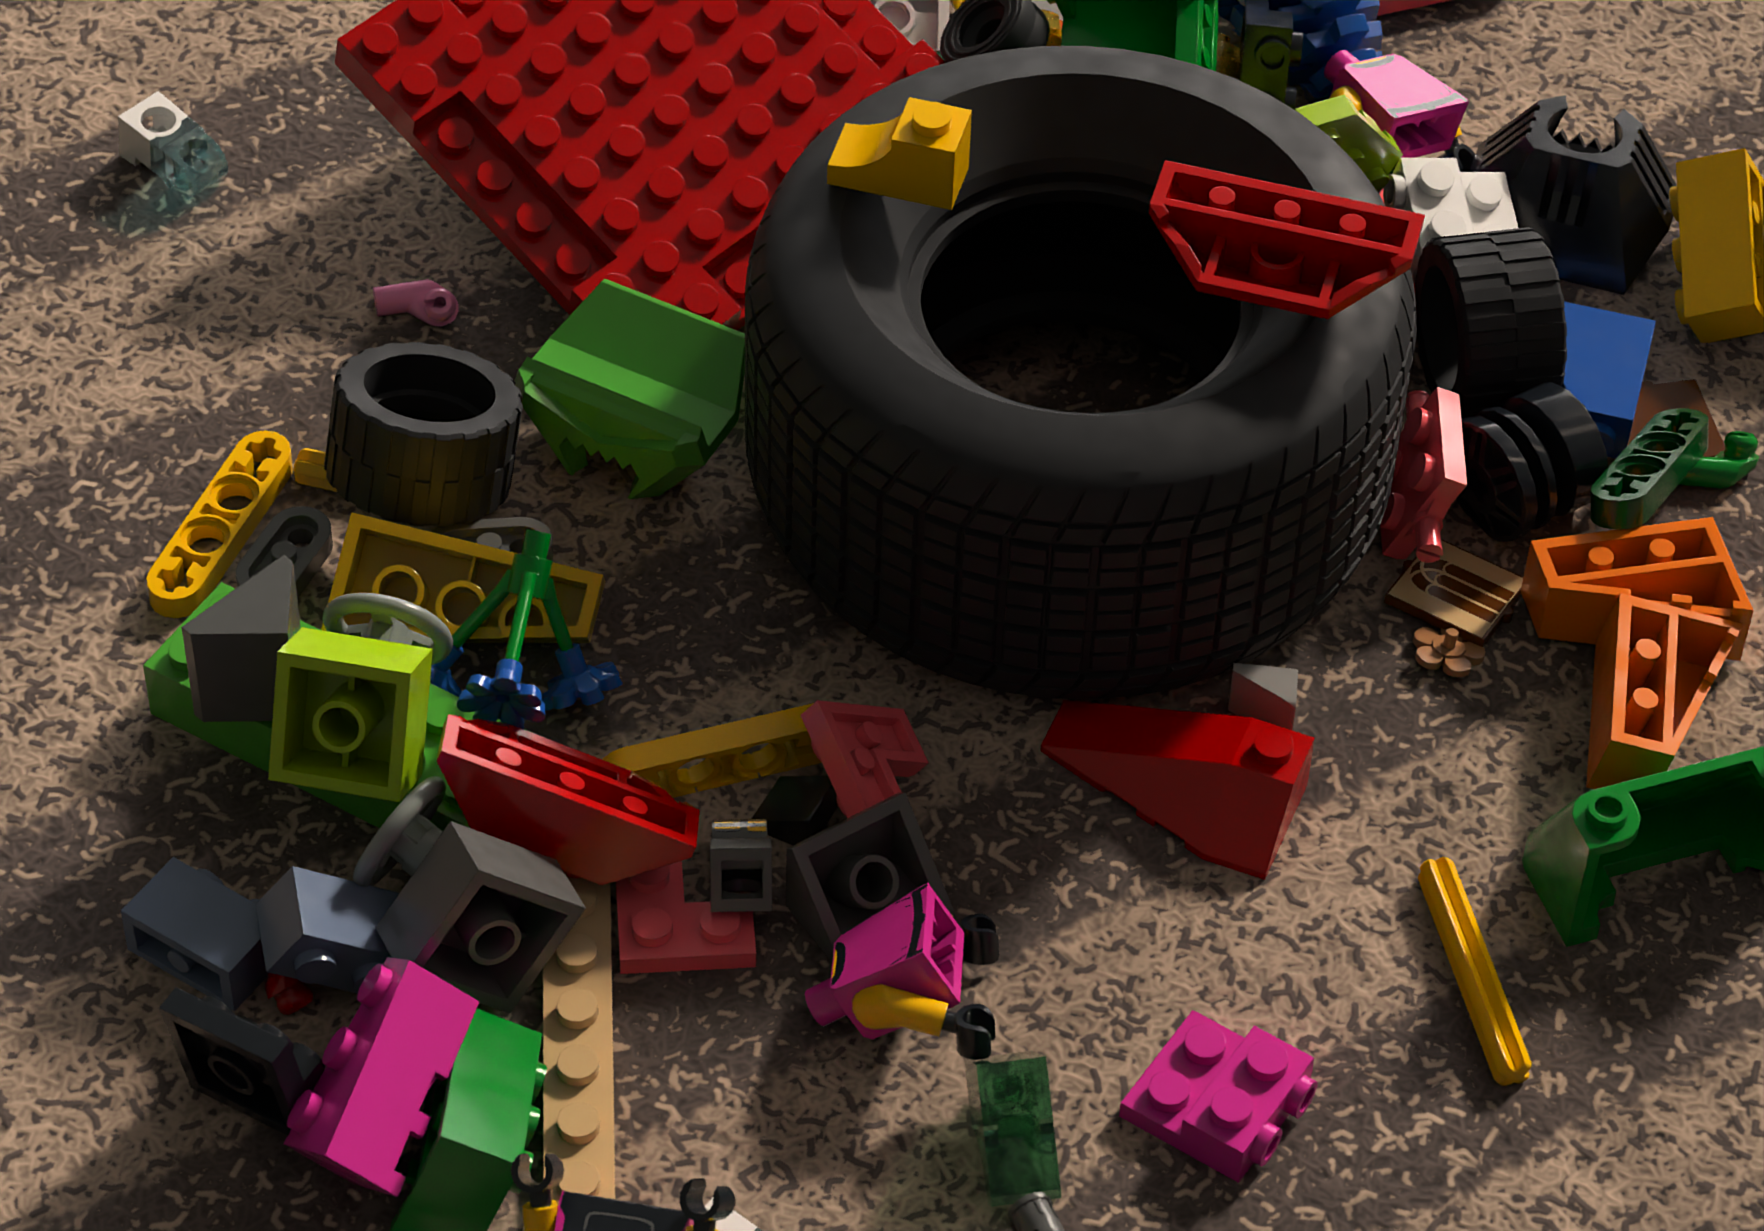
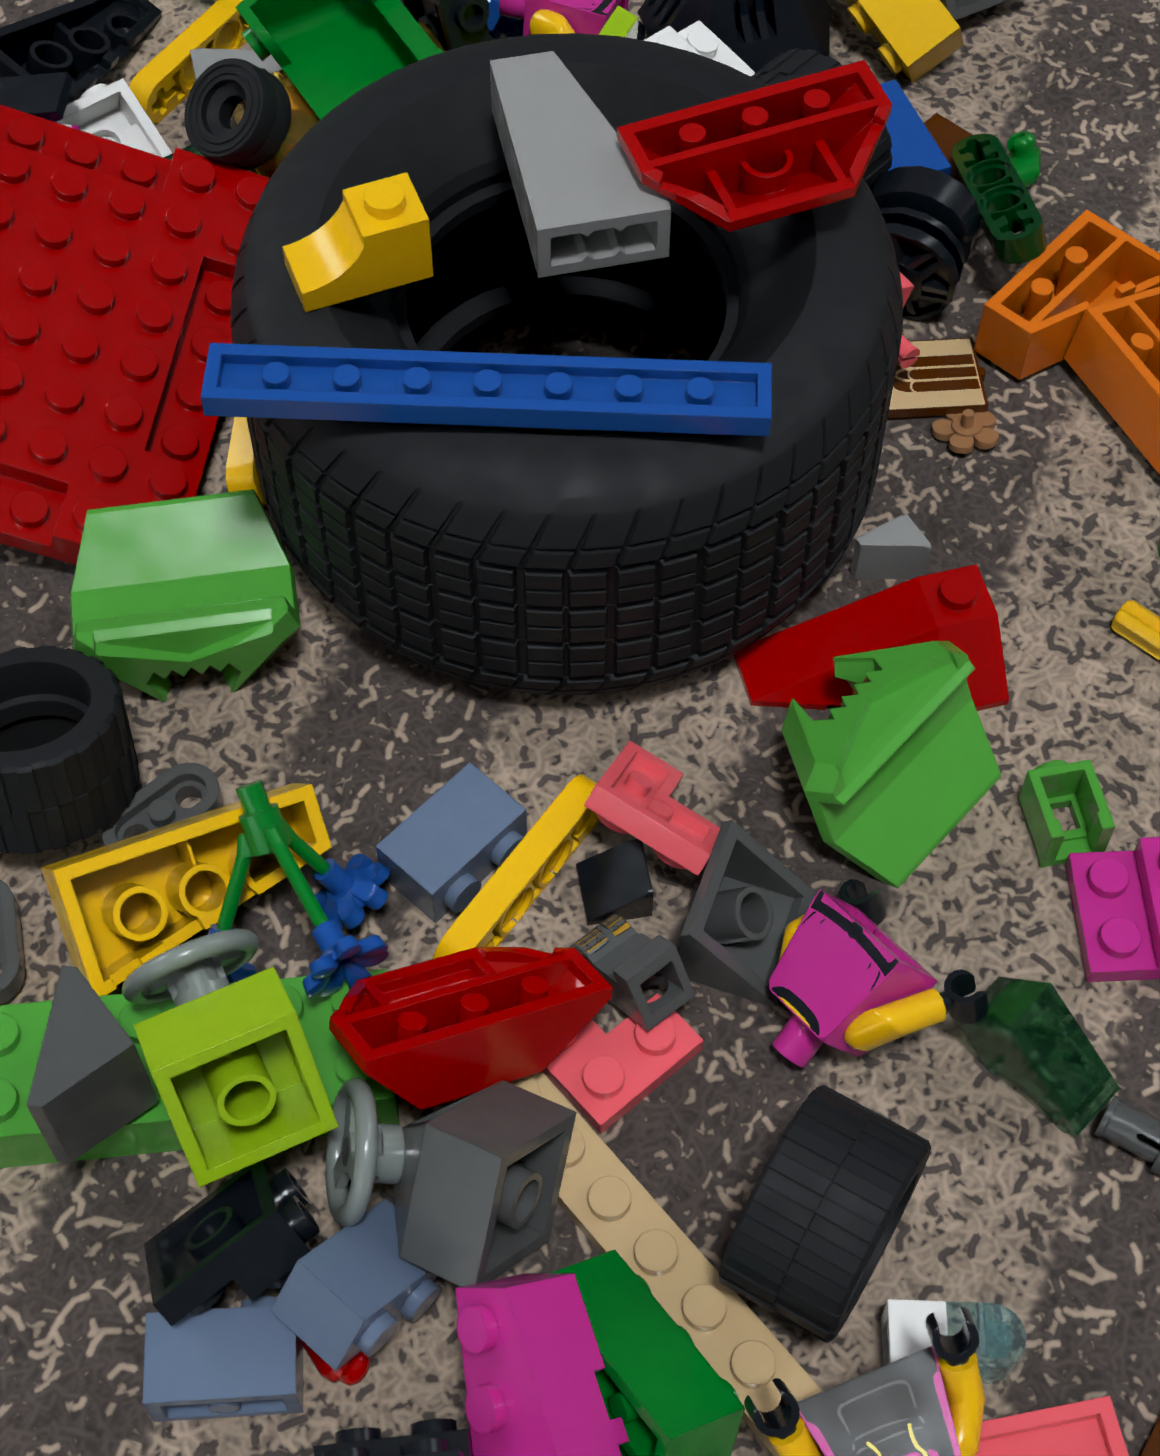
camera: 35 degrees left, 10 degrees up
(273, 848) = (241, 1232): none -> black plate
(688, 689) = (453, 843): none -> sand blue brick
(710, 1091) = (823, 1212): none -> black tyre
(908, 310) = (488, 389): none -> blue plate
(1101, 197) = (571, 172): none -> light grey slope
(1101, 844) = (895, 758): none -> bright green helmet
(1222, 952) = (1059, 786): none -> bright green window

